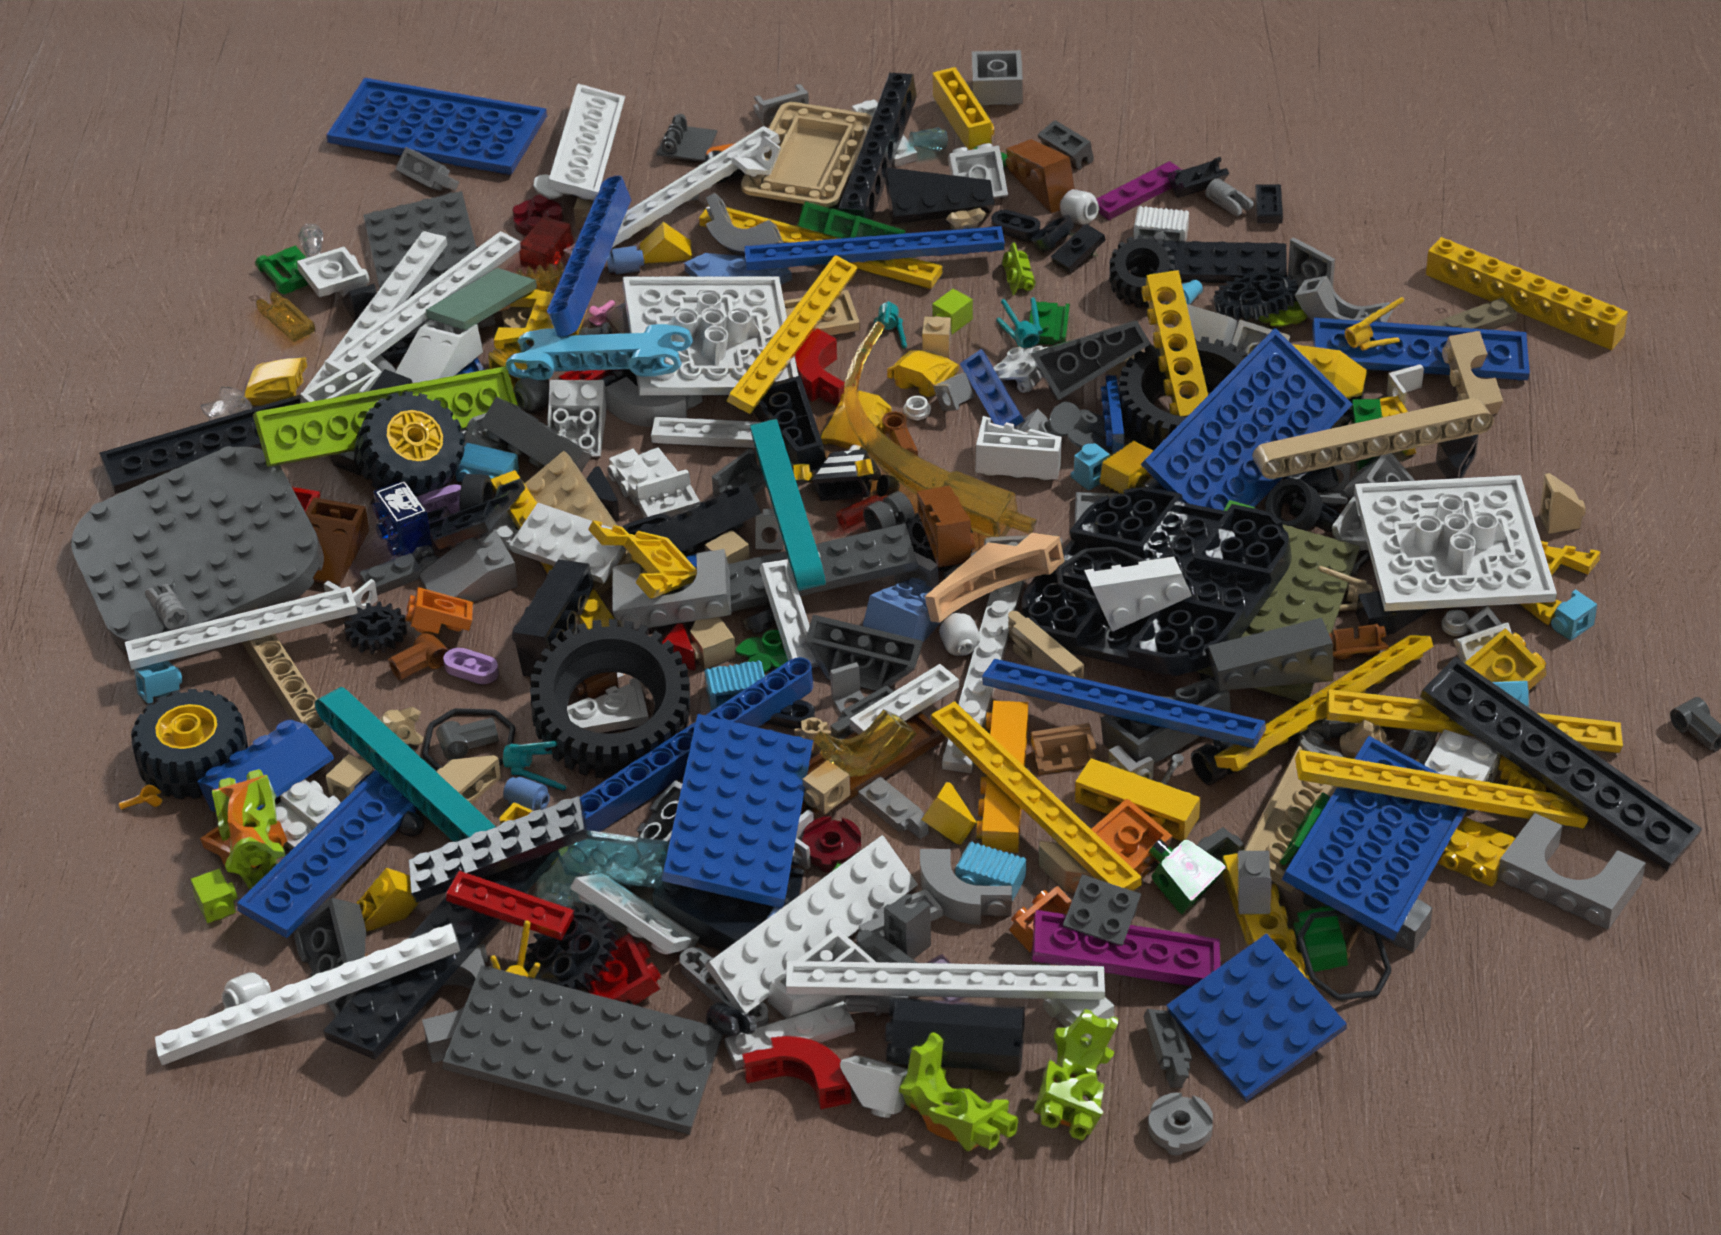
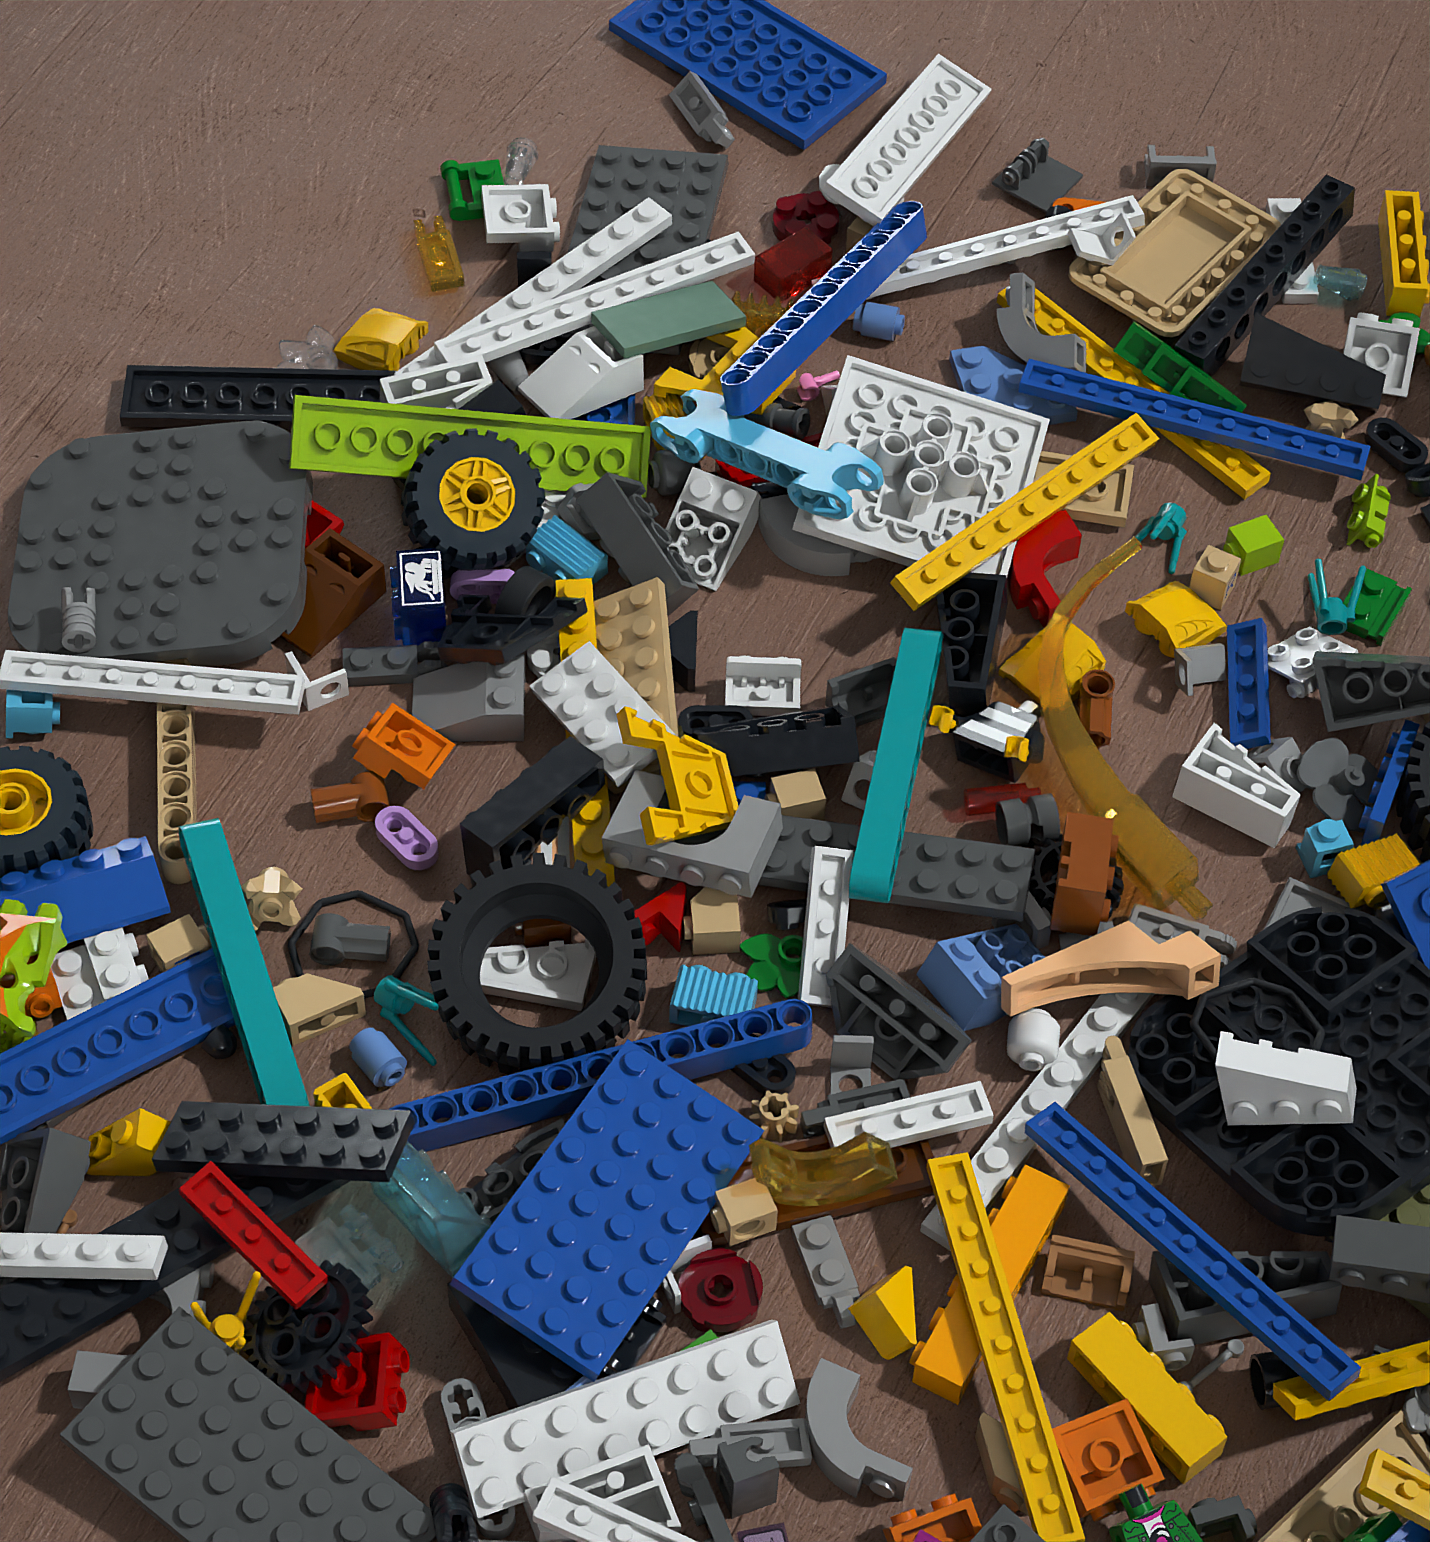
camera: 20 degrees right, 10 degrees up
(375, 628) = (319, 737): black gear -> none
(632, 469) = (752, 631): white plate -> none
(638, 916) = (412, 1303): white plate -> none
(665, 246) = (940, 318): yellow slope -> none
(702, 432) = (854, 604): white plate -> none
(887, 485) = (1049, 774): black hinge -> none
(917, 408) = (1142, 664): white plate -> none
(991, 868) = (901, 1425): medium azure brick -> none

